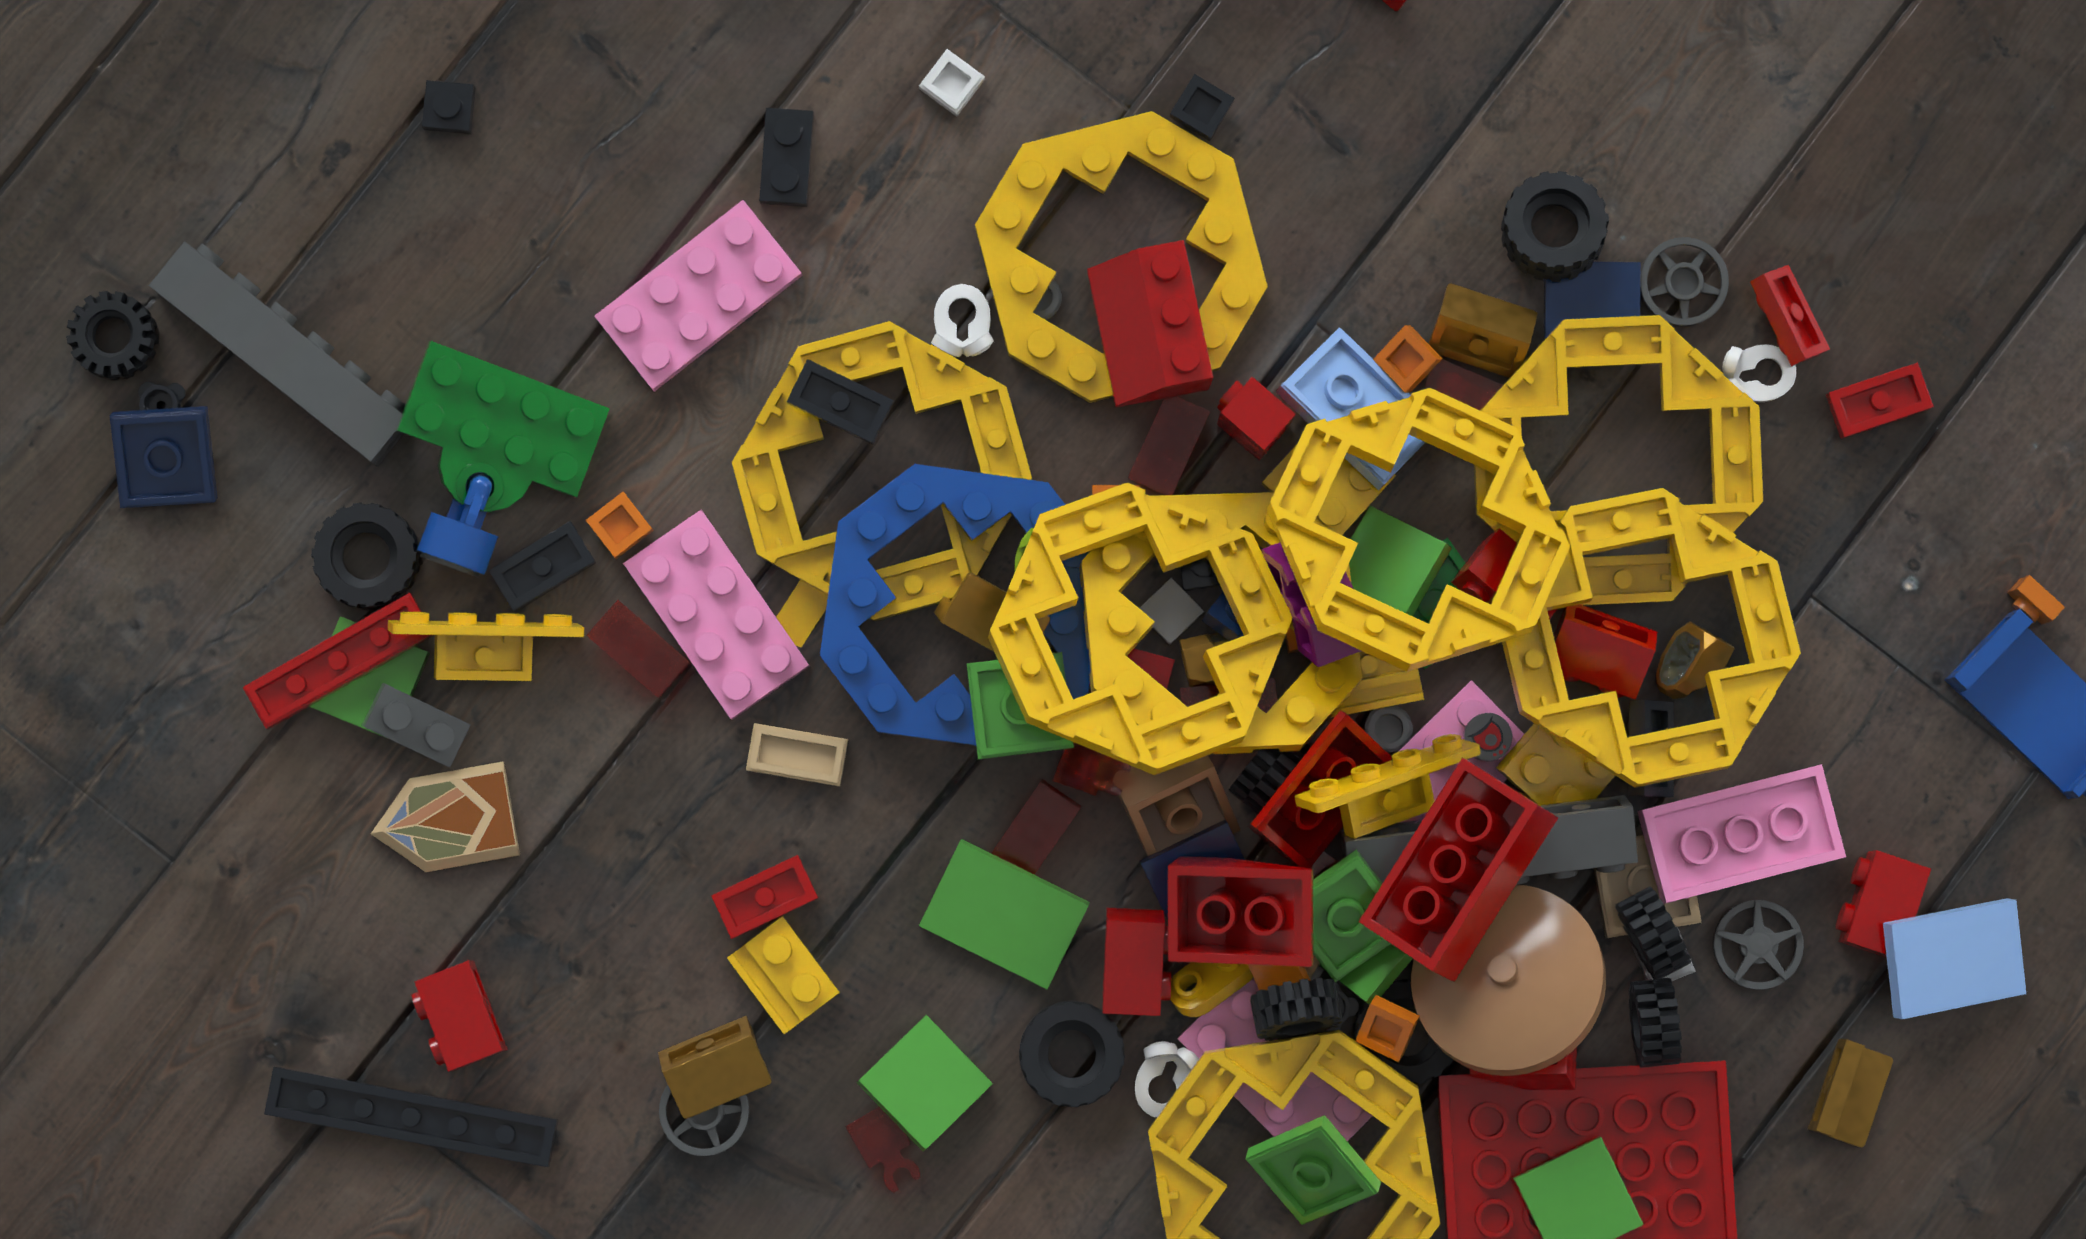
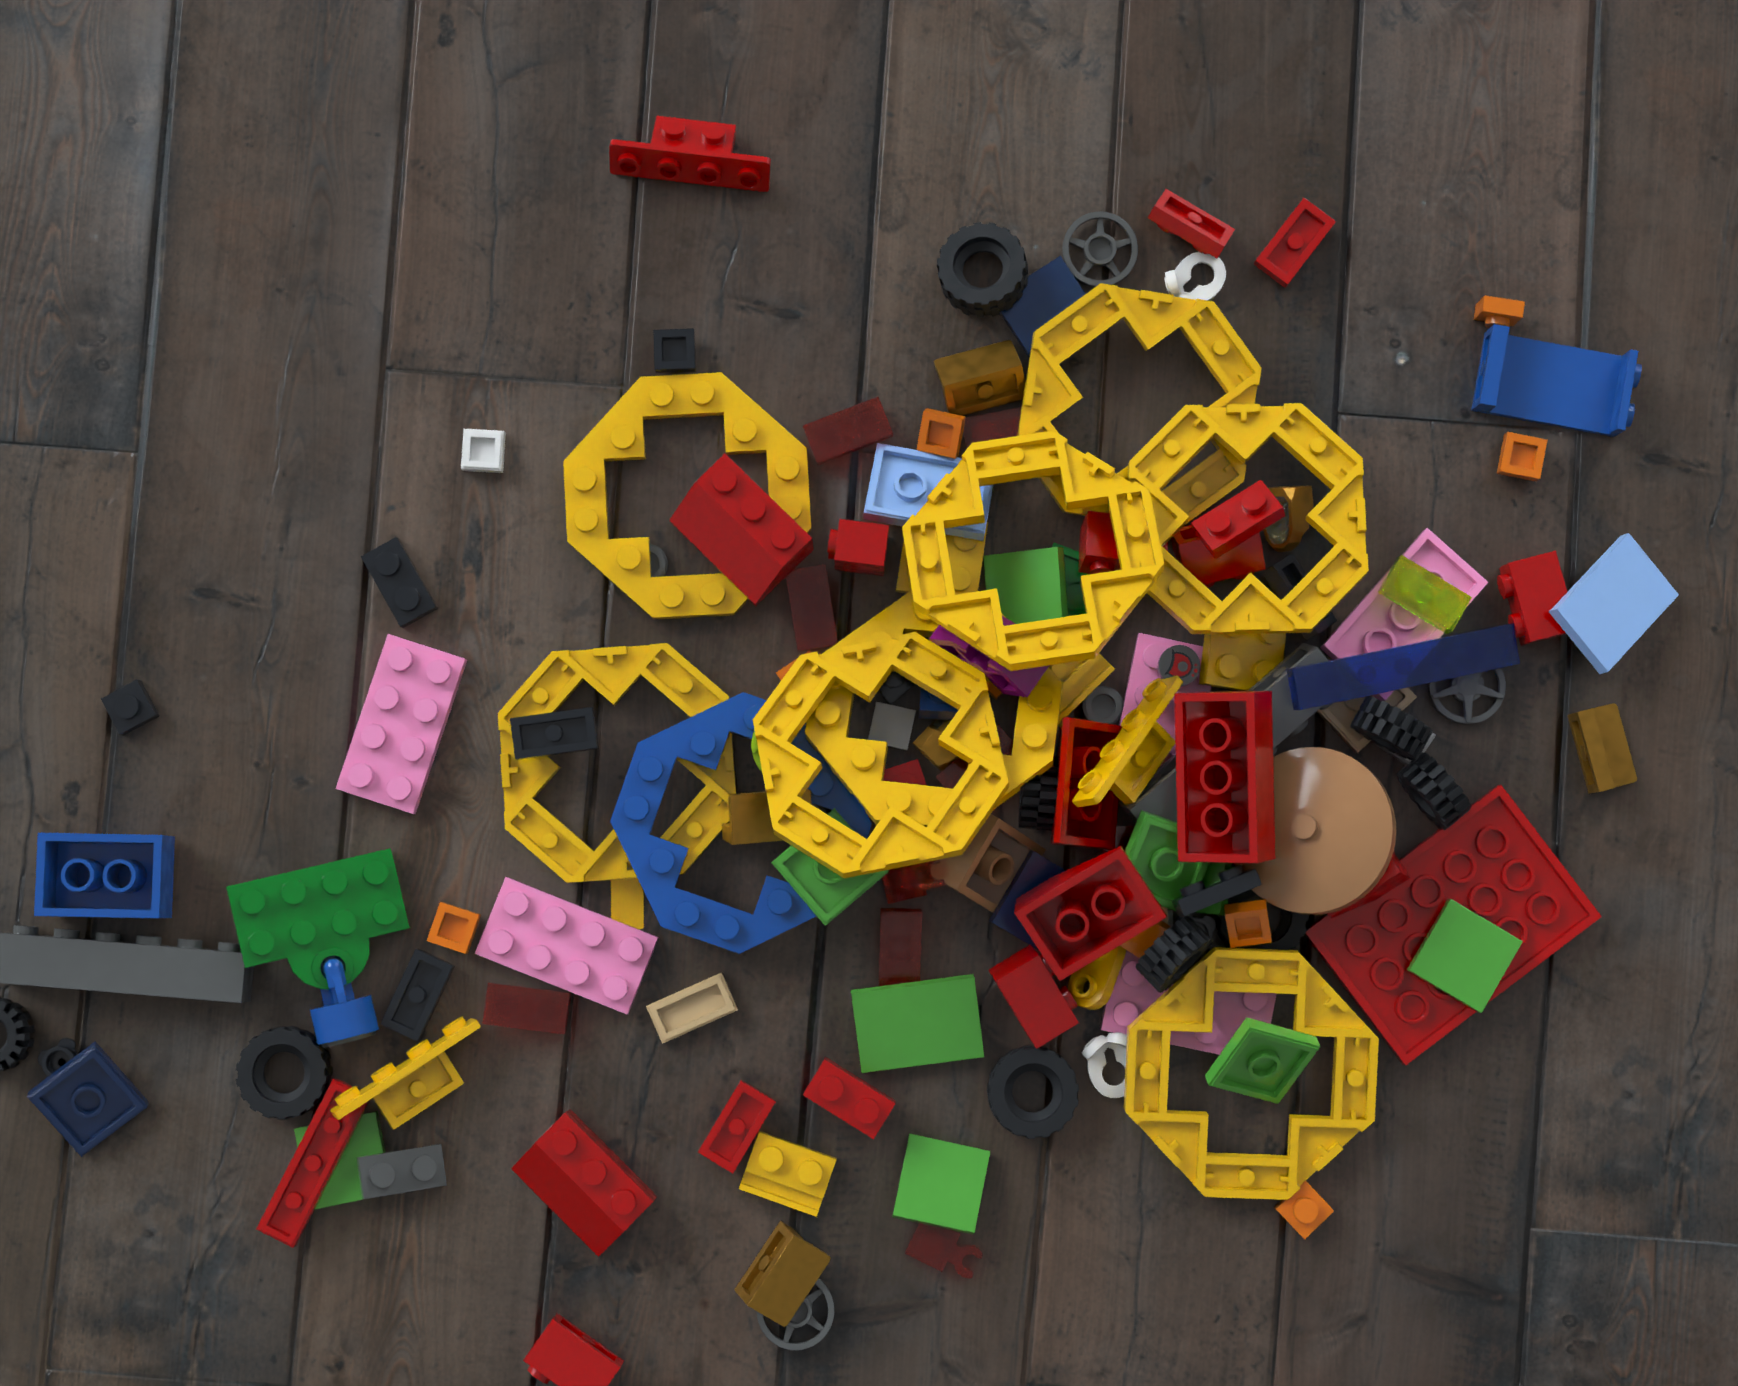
camera: 30 degrees left, 0 degrees up
(320, 253) = (104, 875): none -> blue brick
(452, 819) = (473, 1220): tile -> none
(582, 852) = (584, 1182): none -> red slope
(891, 940) = (849, 1098): none -> red brick
(978, 330) = (599, 635): white piece -> none
(1318, 296) = (847, 430): none -> clear red plate
(1397, 977) = (1231, 883): none -> black plate
(1638, 632) = (1238, 519): none -> red plate
(1705, 881) = (1402, 666): none -> clear blue tile
(1774, 826) = (1424, 594): none -> clear neon green plate
(1962, 757) = (1522, 456): none -> orange plate

